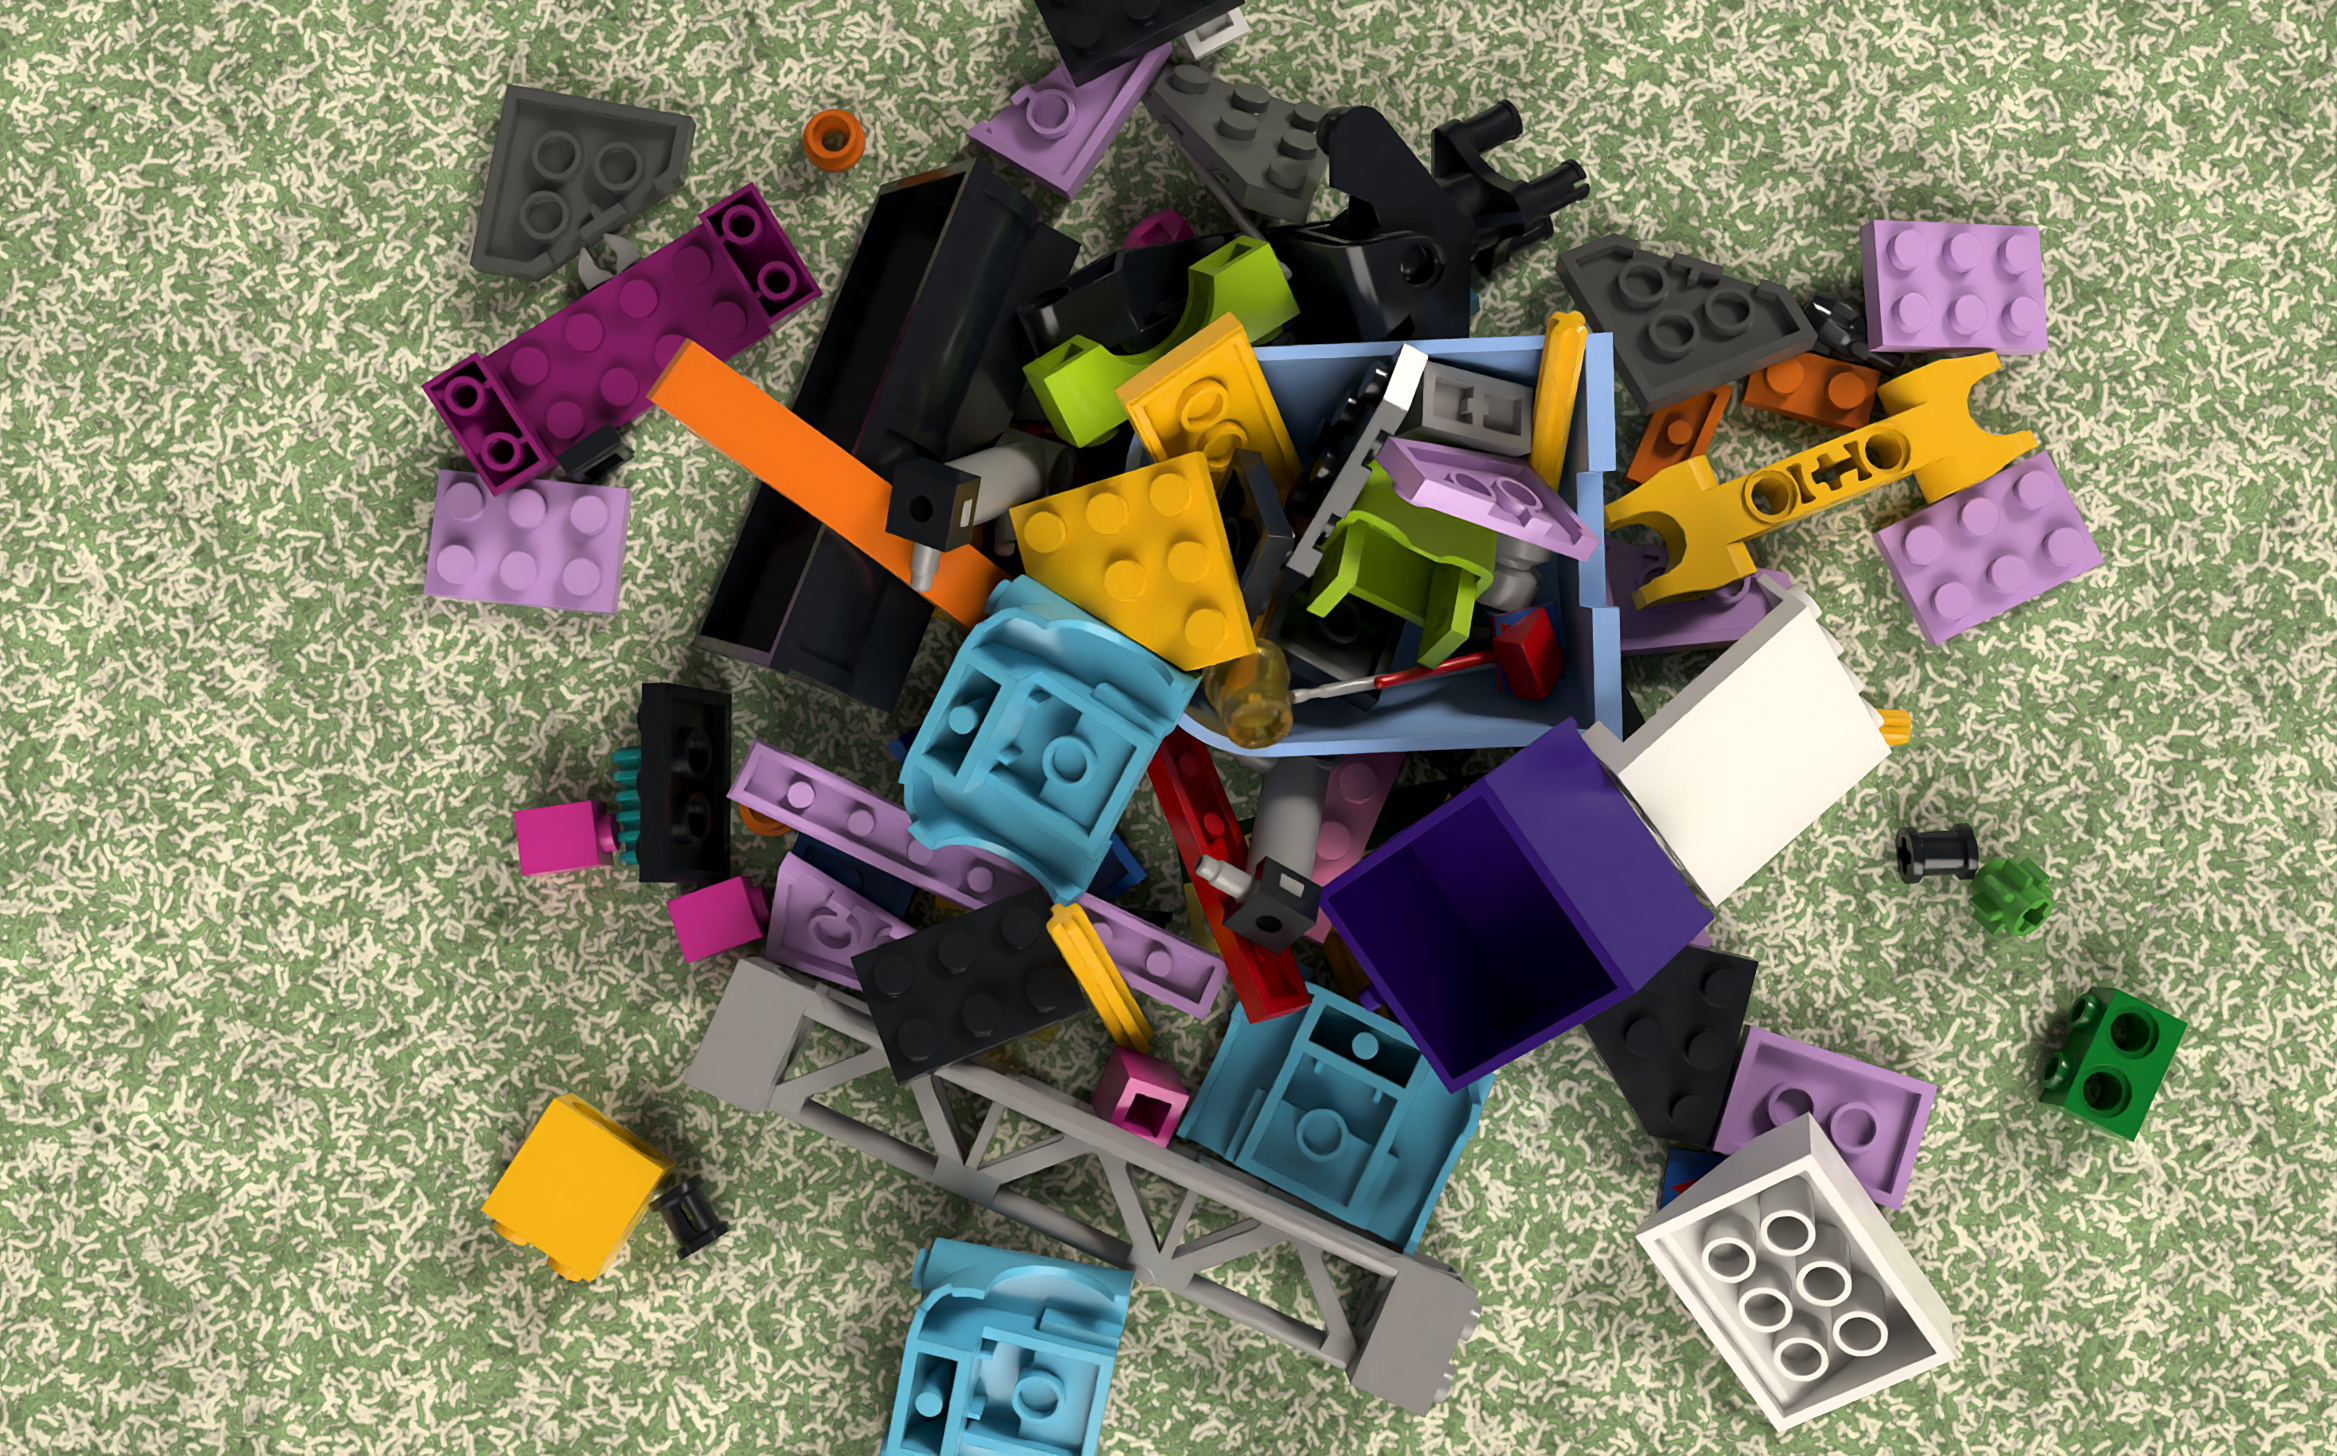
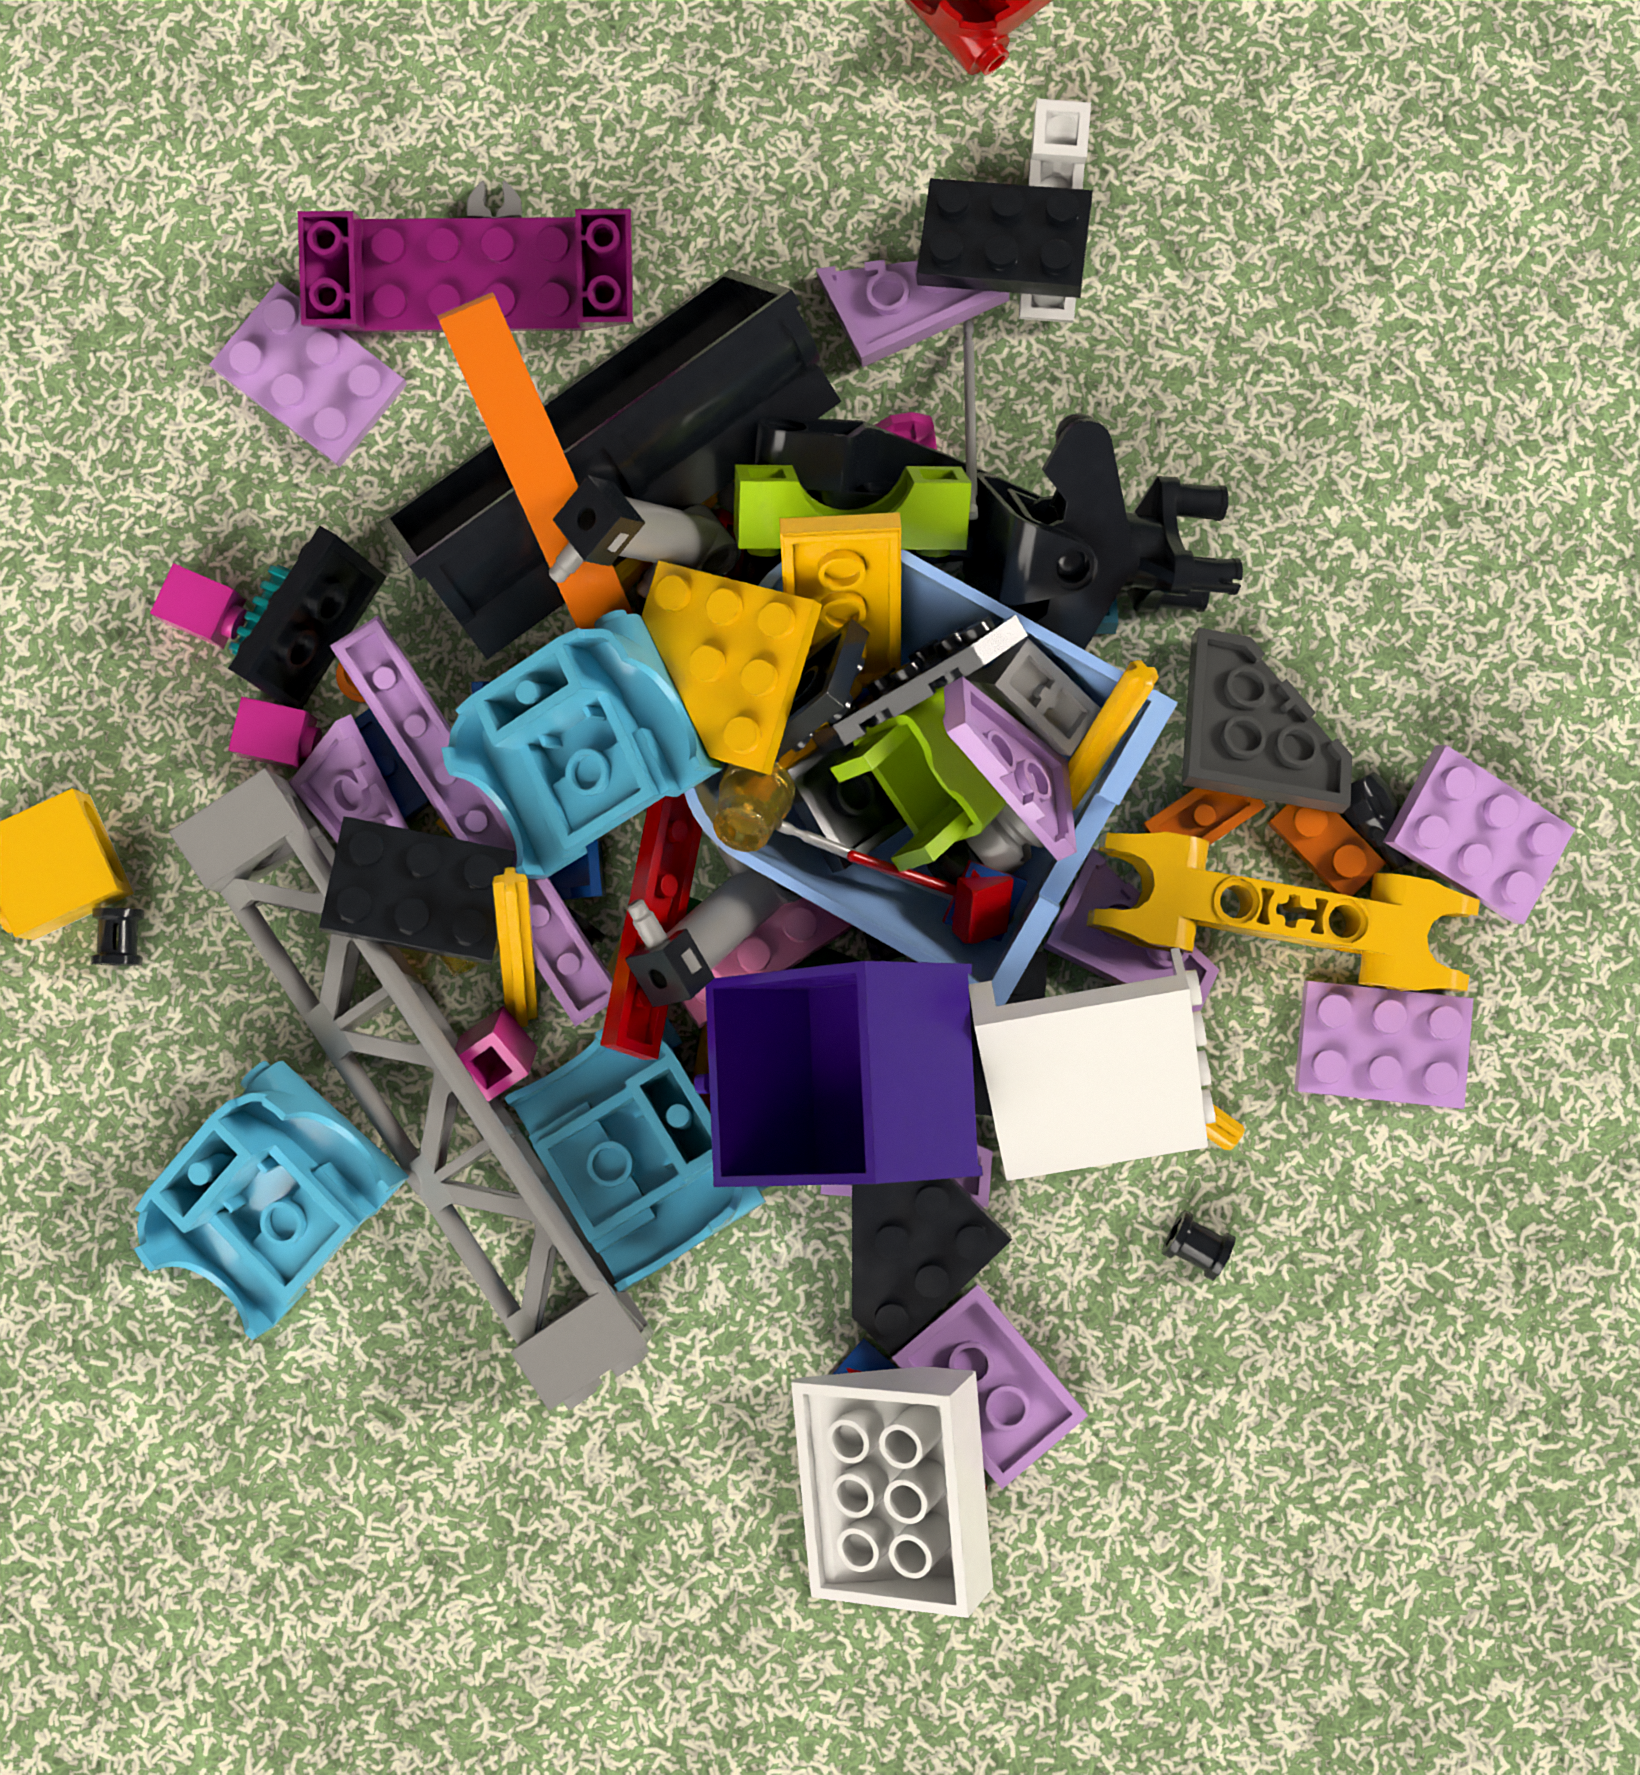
camera: 30 degrees right, 0 degrees up
(569, 175) = (508, 124): dark grey plate -> none
(596, 455) = (396, 340): black tile -> none
(828, 123) = (716, 199): orange plate -> none
(1249, 136) = (1014, 396): dark grey plate -> none
(2011, 896) = (1232, 1311): bright green gear -> none
(2126, 1072) = (1237, 1494): green brick -> none

